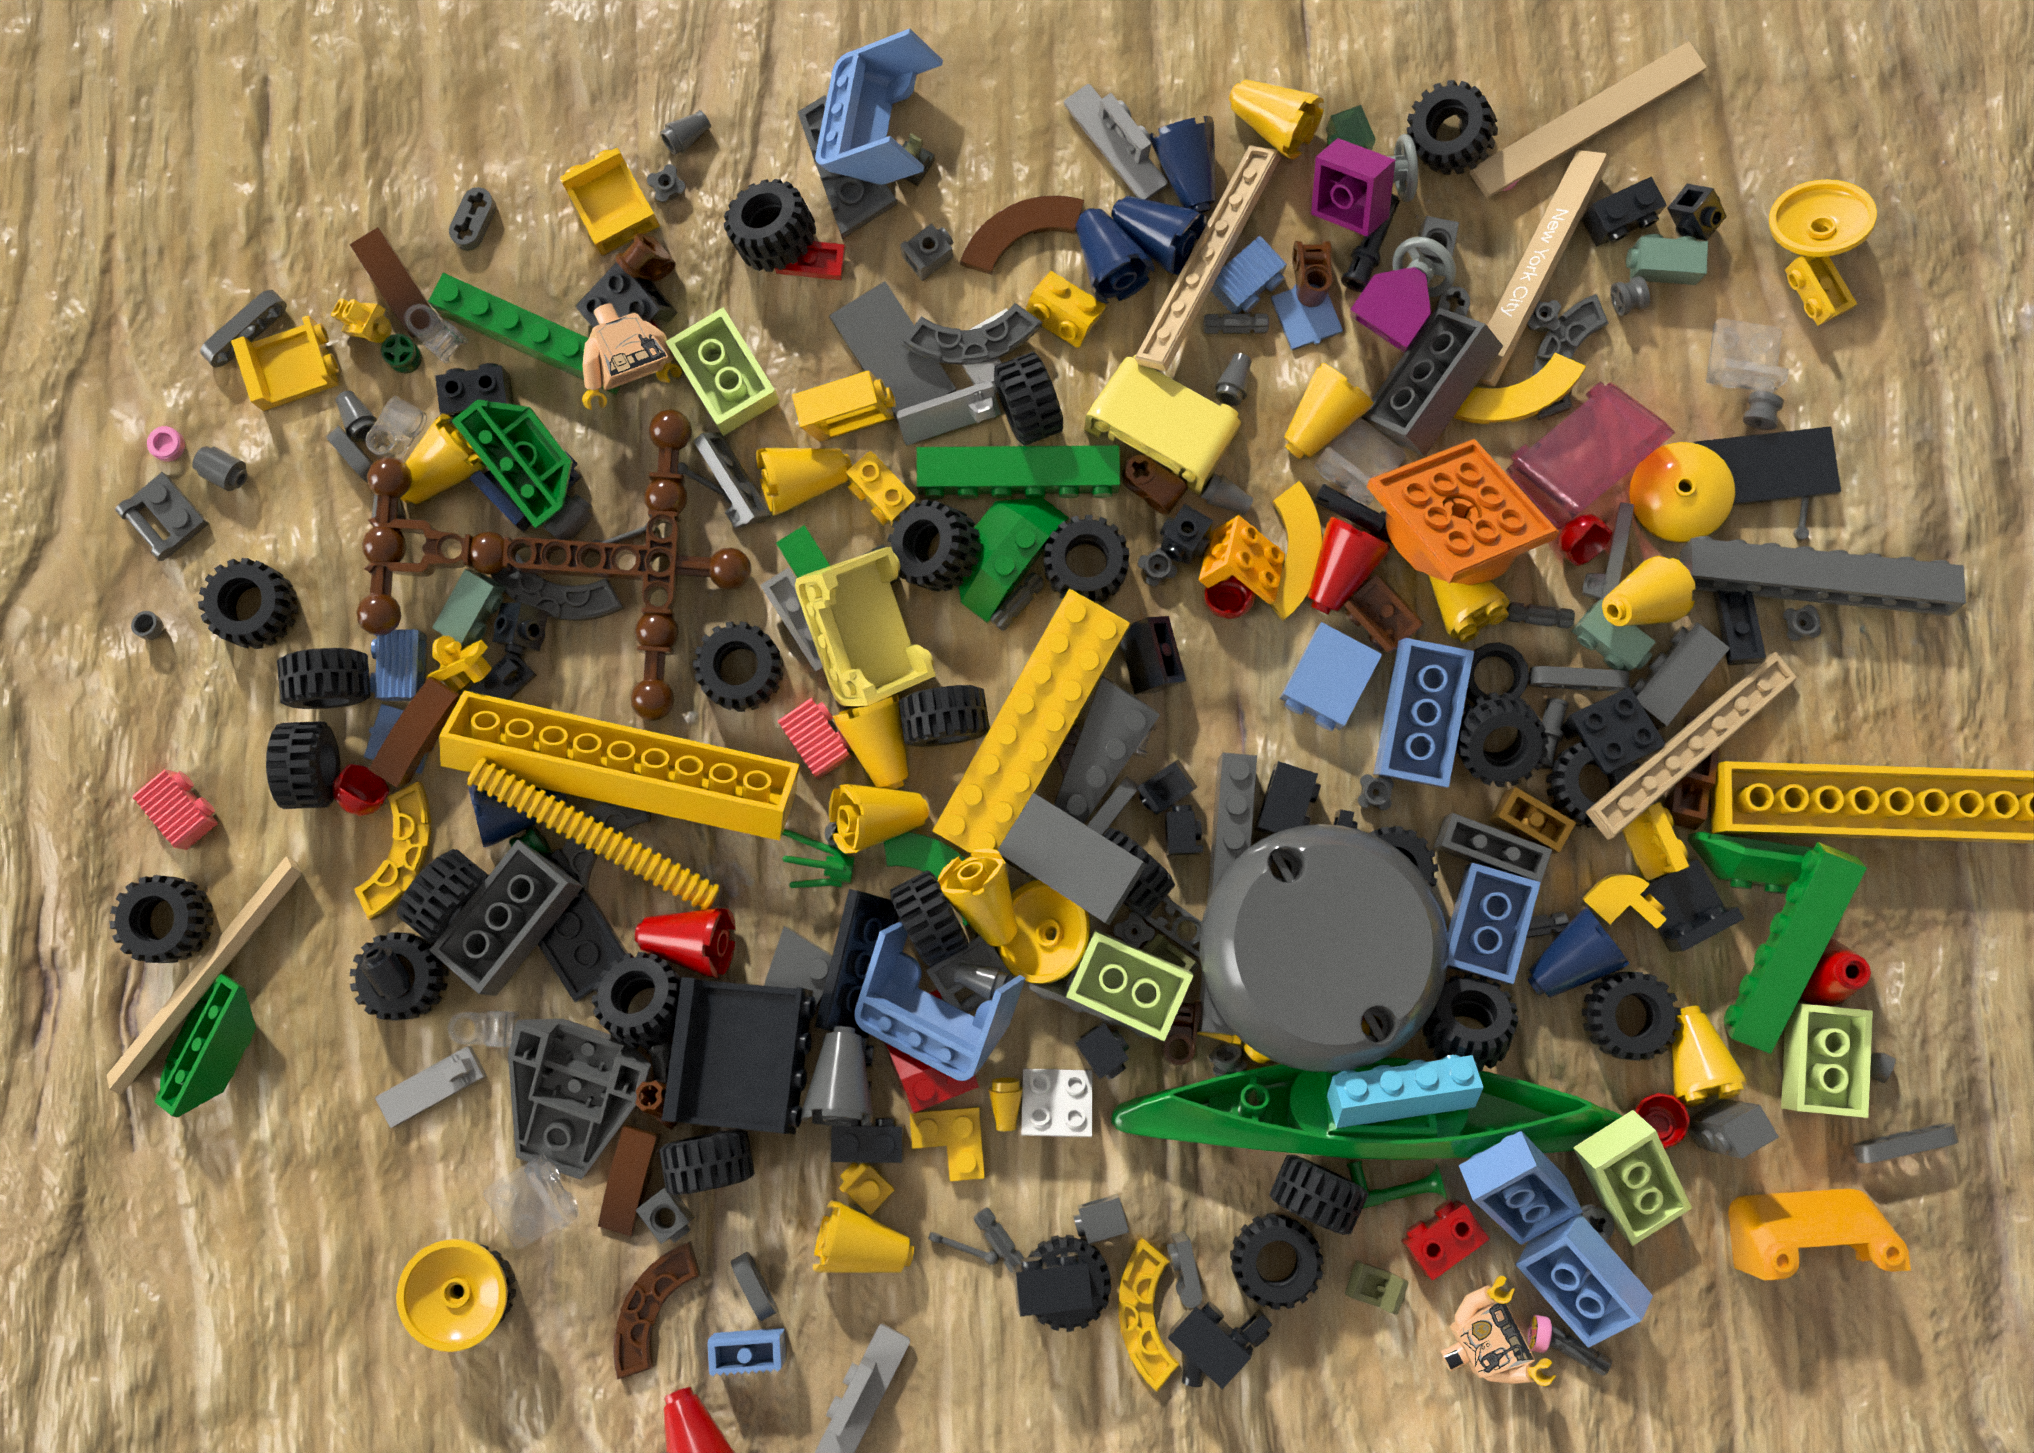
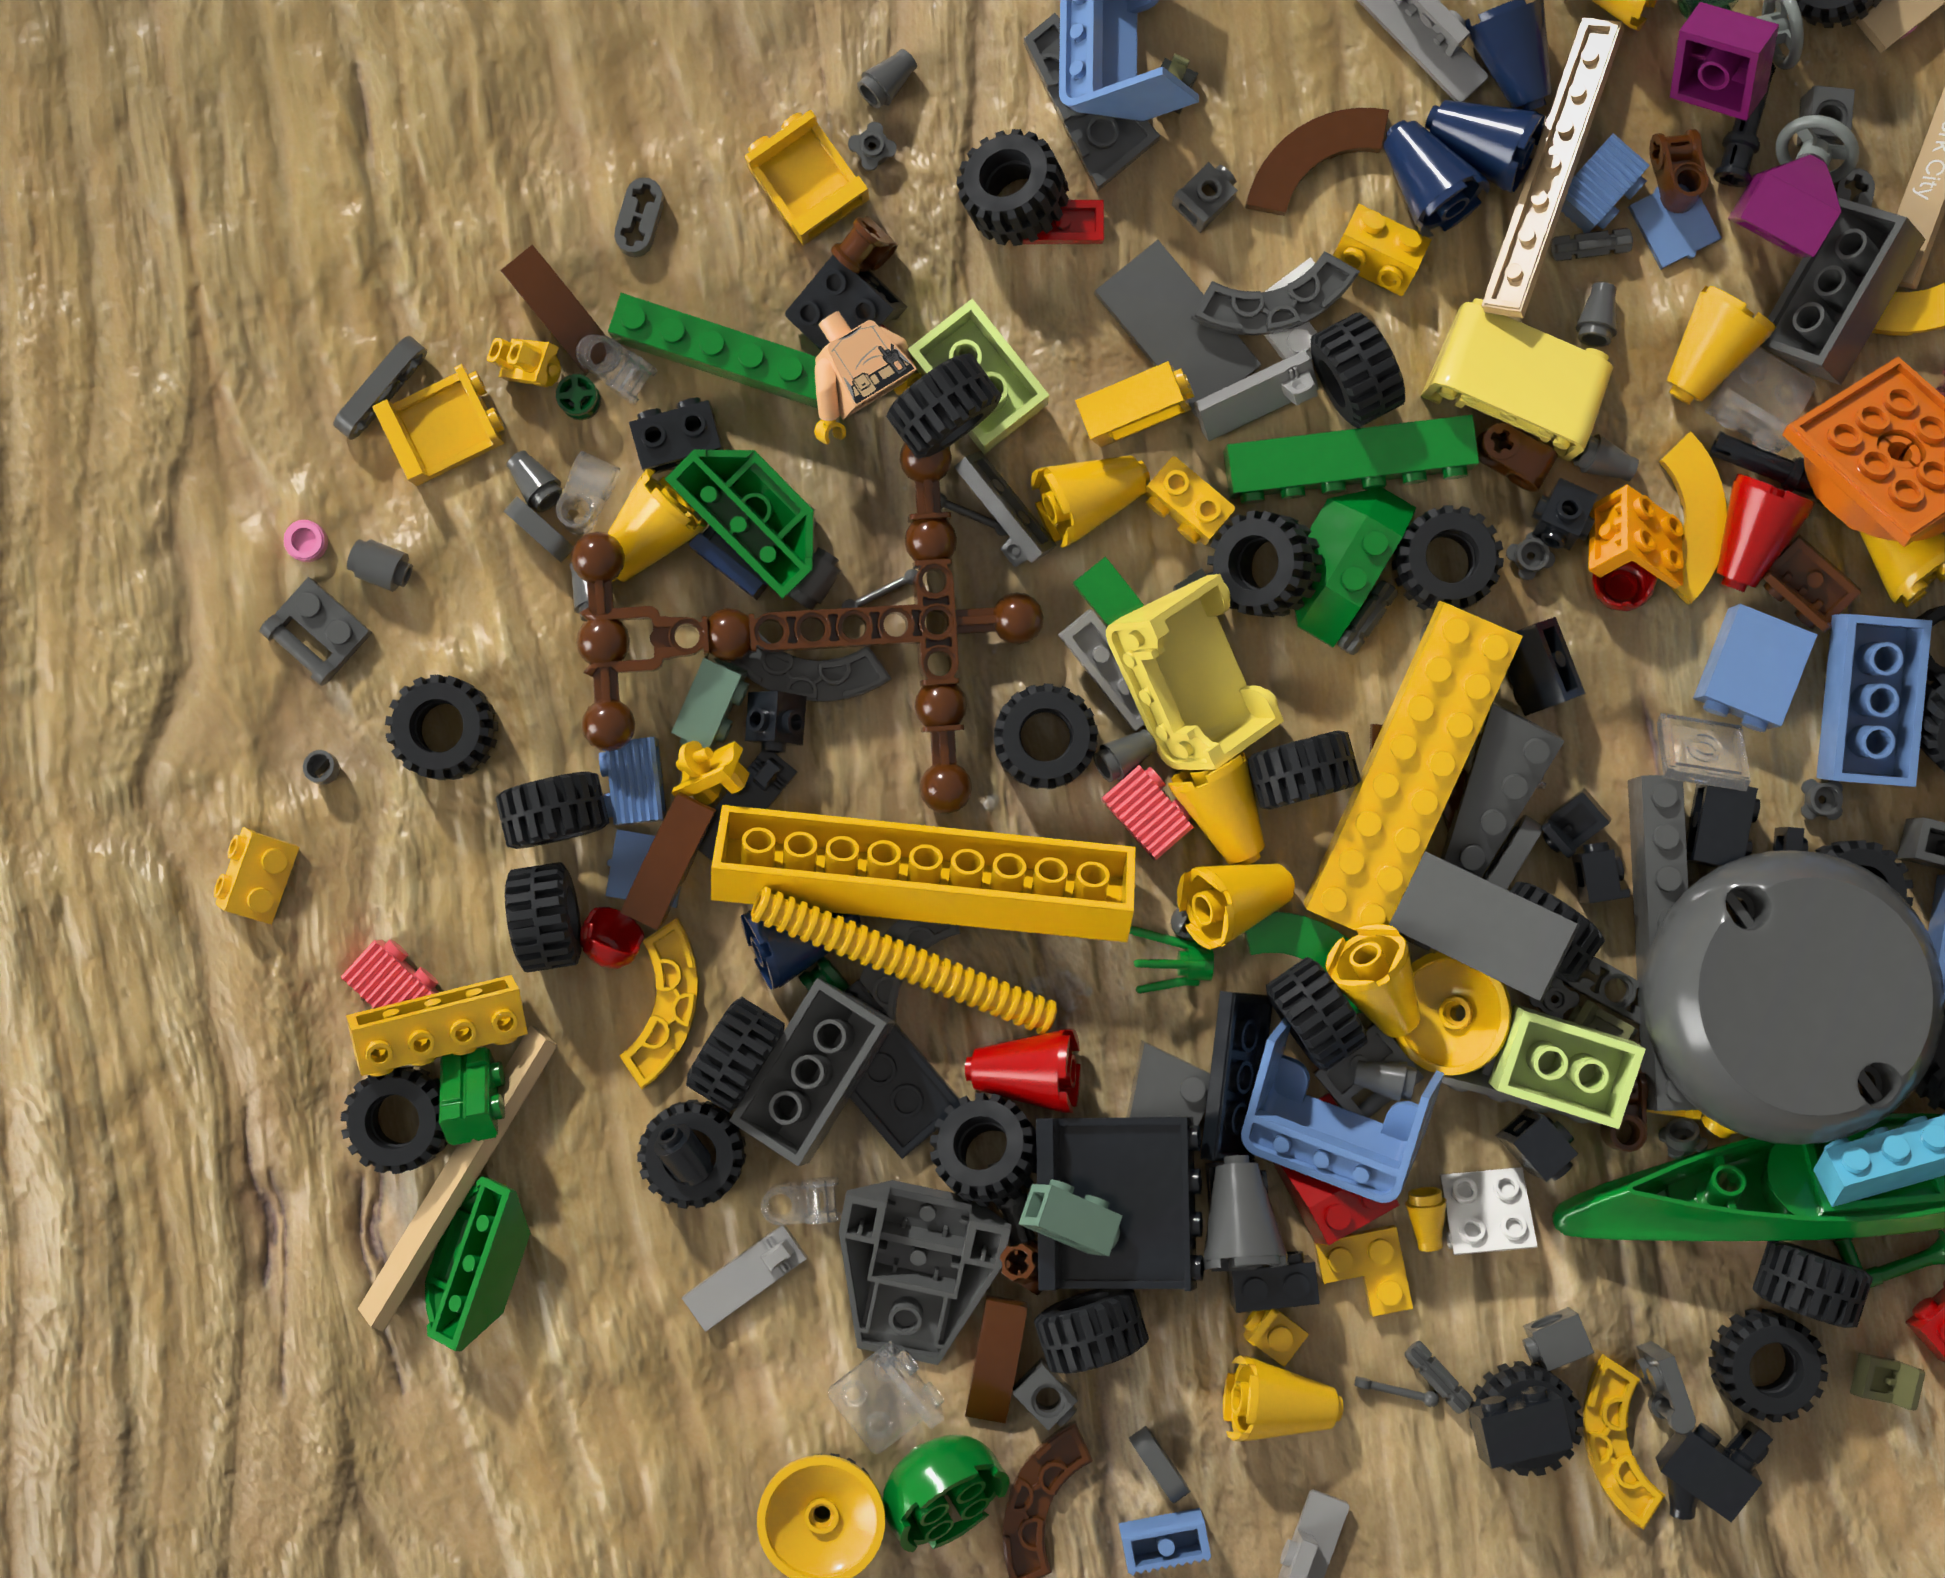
camera: 10 degrees left, 5 degrees up
(80, 708) = (255, 875): none -> yellow bracket
(201, 844) = (437, 1026): none -> yellow brick
(221, 906) = (470, 1096): none -> green brick
(557, 1270) = (936, 1469): none -> green cylinder
(680, 384) = (943, 405): none -> black tyre
(696, 1063) = (1071, 1219): none -> sand green brick
(801, 688) = (1123, 755): none -> dark grey cone
(1278, 740) = (1703, 752): none -> clear tile

